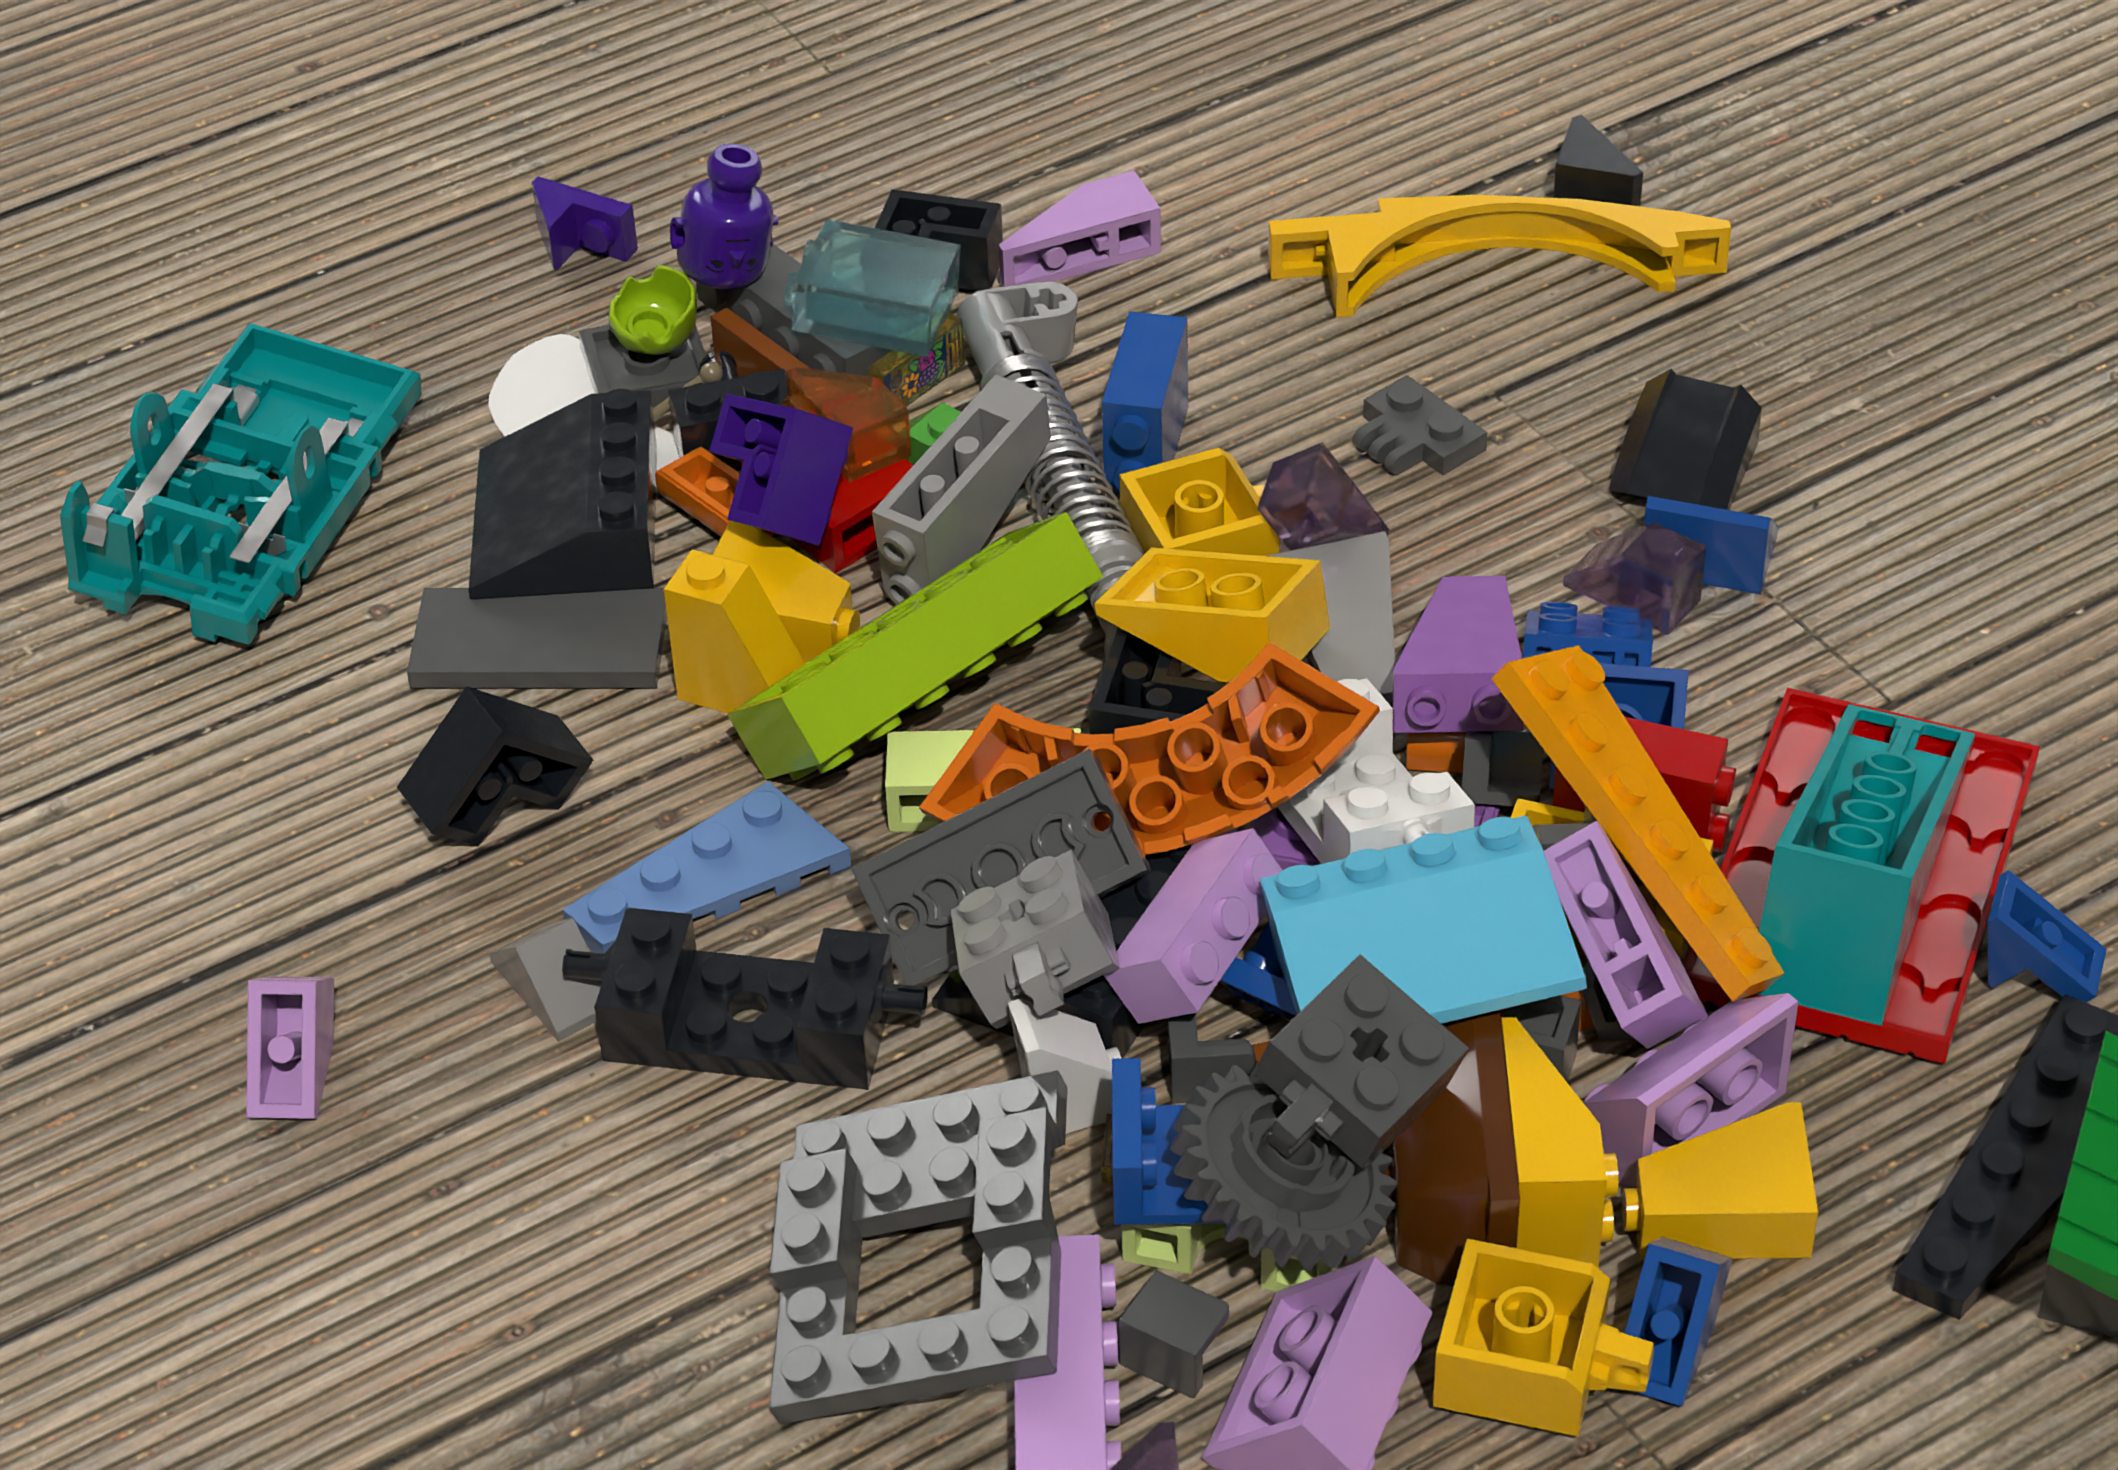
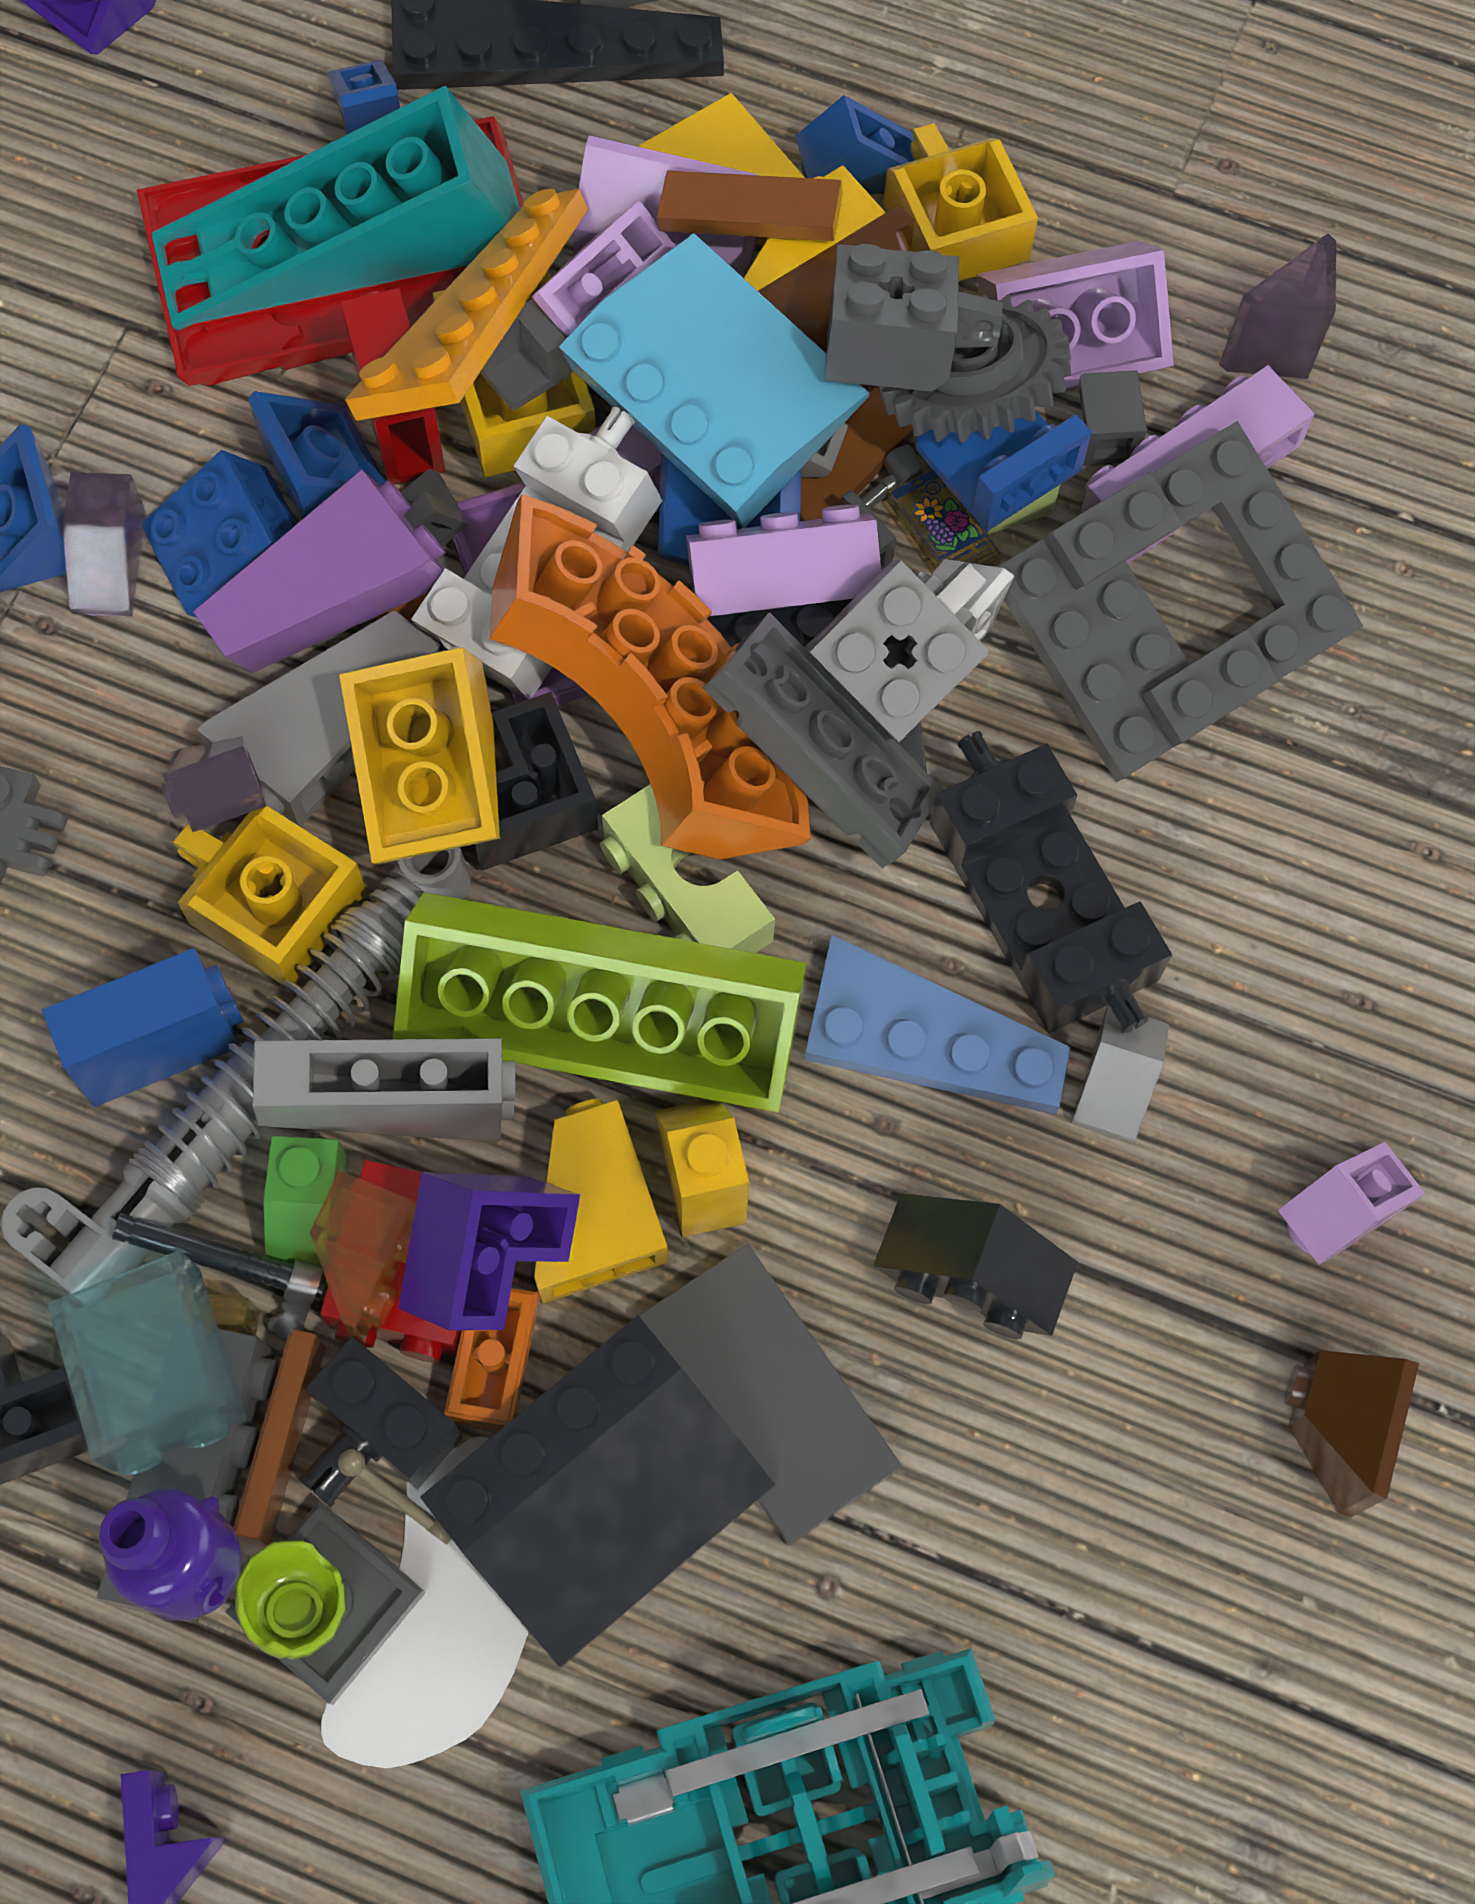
camera: 130 degrees left, 25 degrees up
(140, 915) = (1351, 1422): none -> reddish brown slope
(950, 361) = (300, 1280): none -> black piece
(1604, 1069) = (750, 205): none -> dark orange tile

